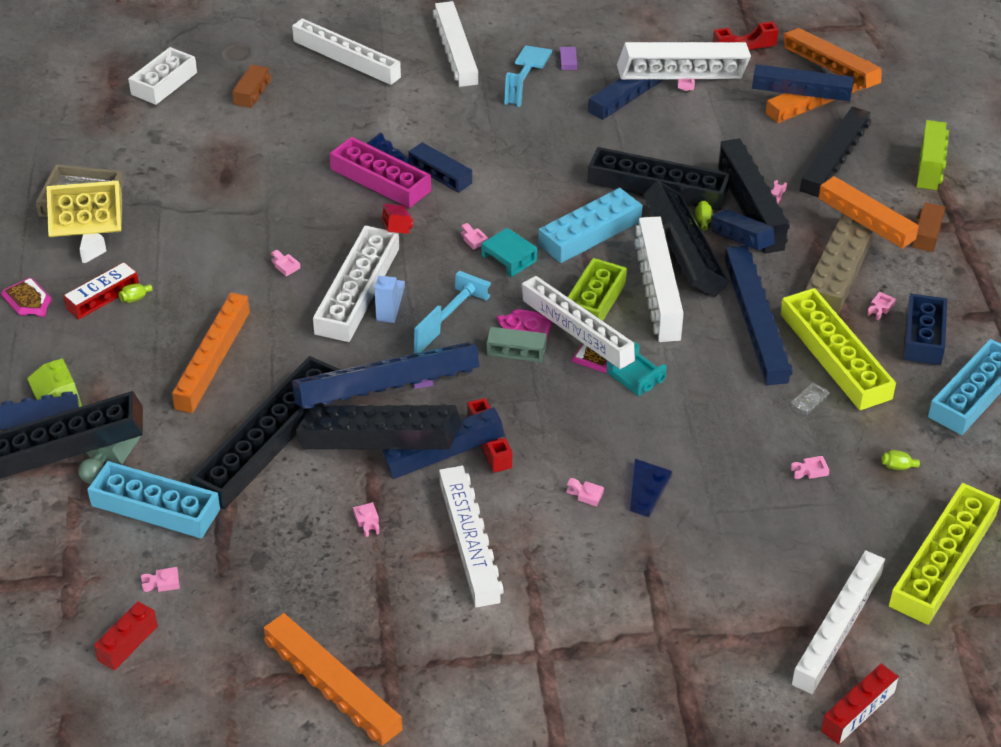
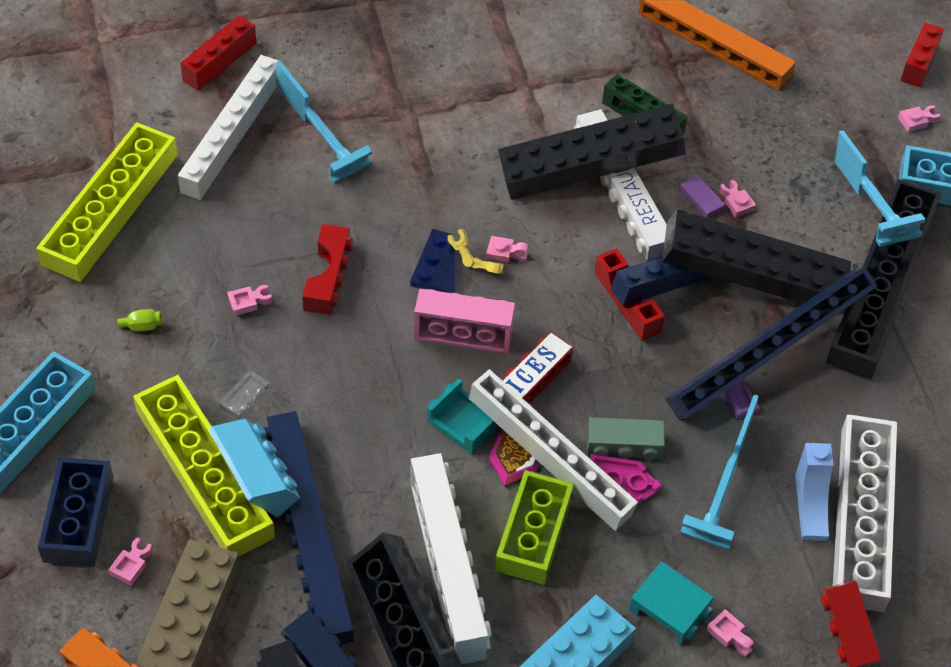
camera: 170 degrees right, 10 degrees up
(247, 438) = (854, 169): none -> medium azure piece
(398, 523) = (702, 197): none -> medium lavender tile
(430, 601) = (634, 97): none -> dark green brick
(496, 538) = (592, 151): none -> black brick
(580, 390) = (539, 367): none -> brick
(619, 484) = (468, 259): none -> light yellow piece
(631, 421) = (463, 321): none -> bright pink brick
(739, 501) = (321, 291): none -> red arch
(774, 631) = (347, 162): none -> medium azure piece
(799, 330) = (256, 465): none -> medium azure slope

